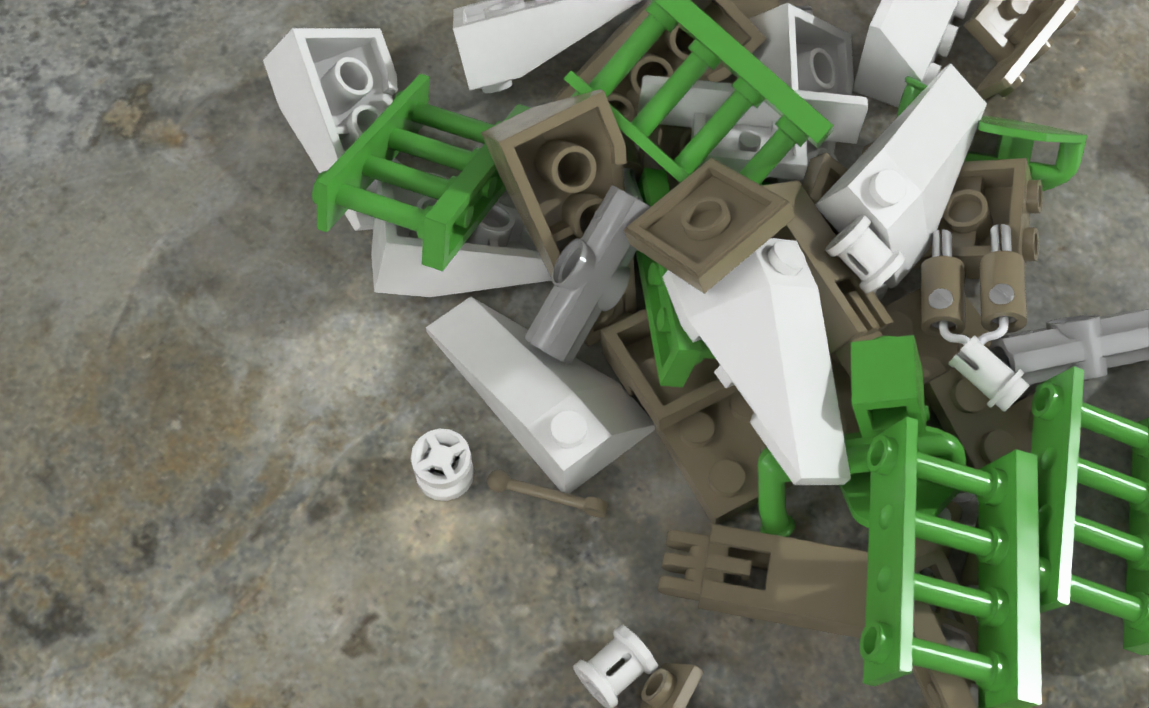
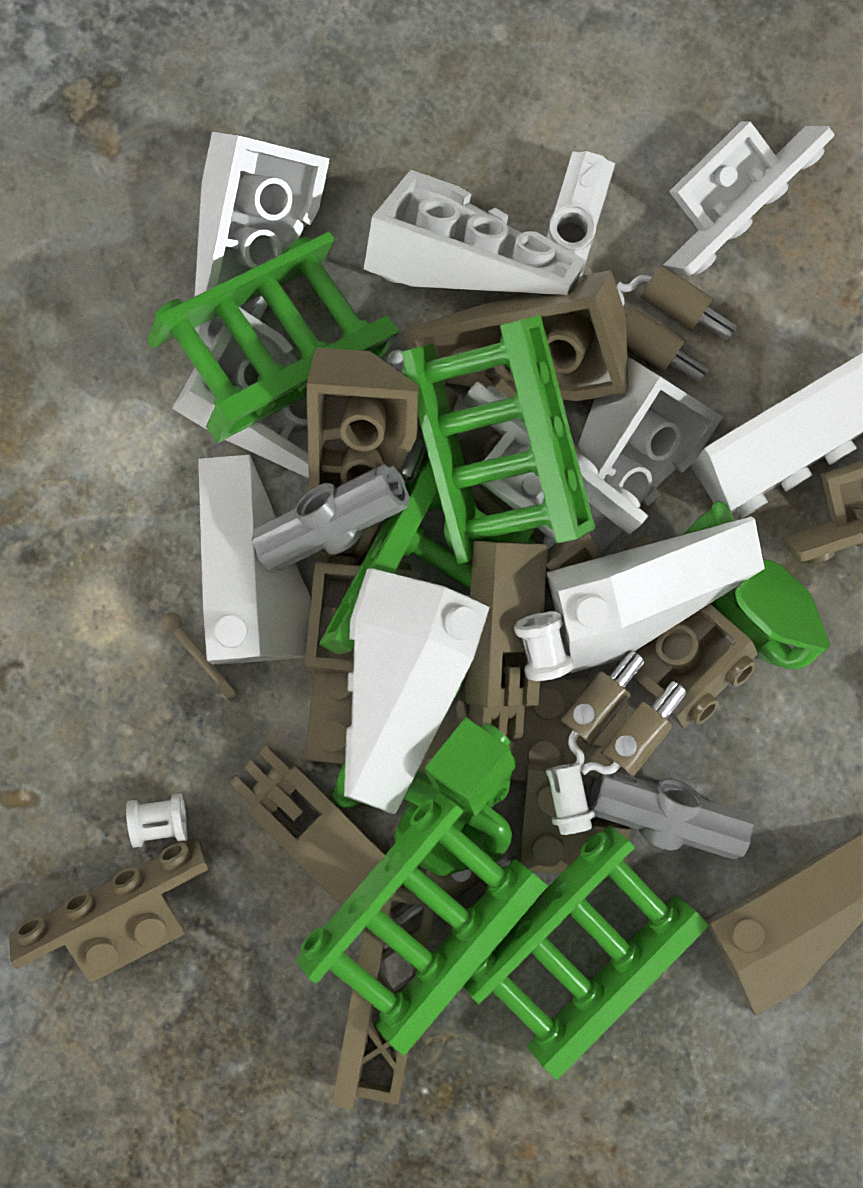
camera: 35 degrees right, 20 degrees up
(439, 451) = (126, 583): white wheel -> none
(709, 224) = (422, 556): dark tan plate -> none

